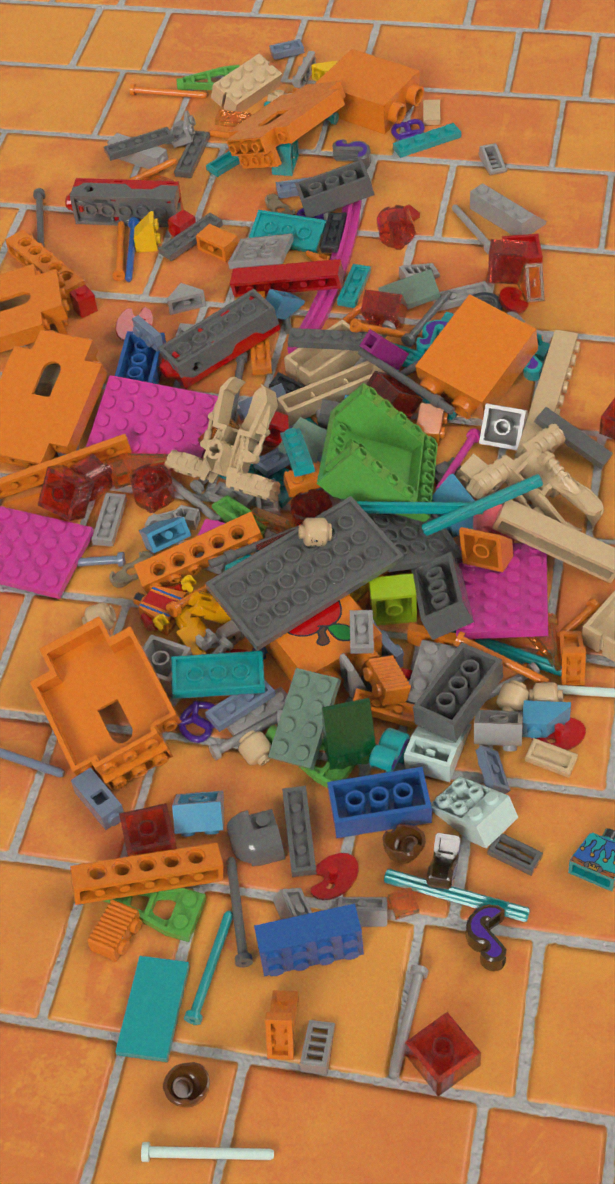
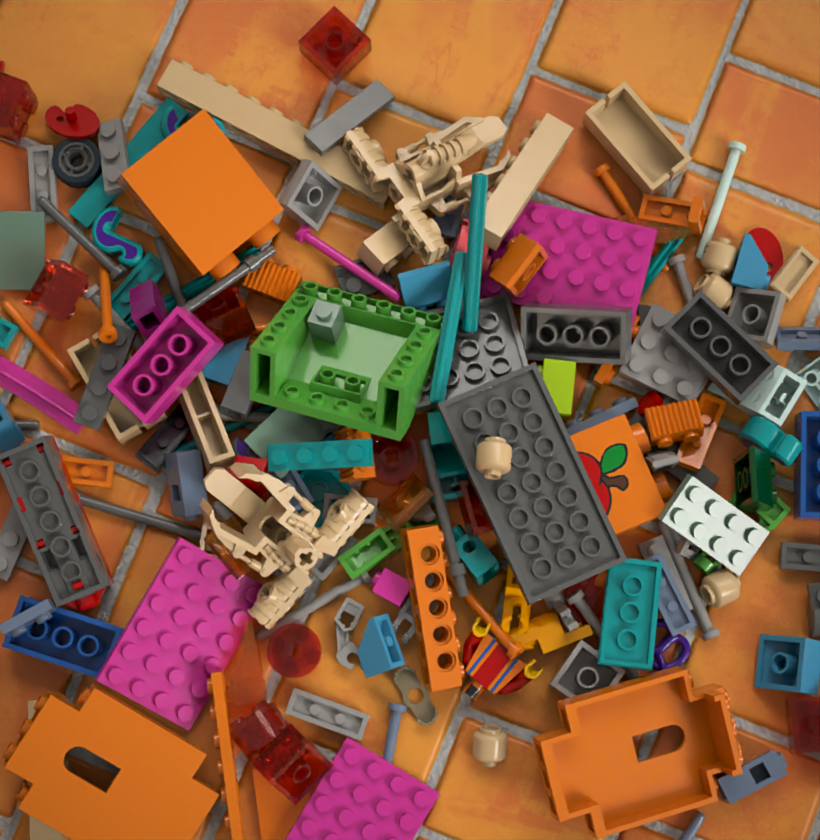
camera: 85 degrees left, 30 degrees up
(341, 355) = (165, 365): none -> dark pink brick
(361, 631) = (626, 435): light grey plate -> none
(404, 446) = (326, 321): none -> sand green brick
(508, 663) = (640, 328): orange bar -> none
(532, 282) = (54, 89): clear orange slope -> none

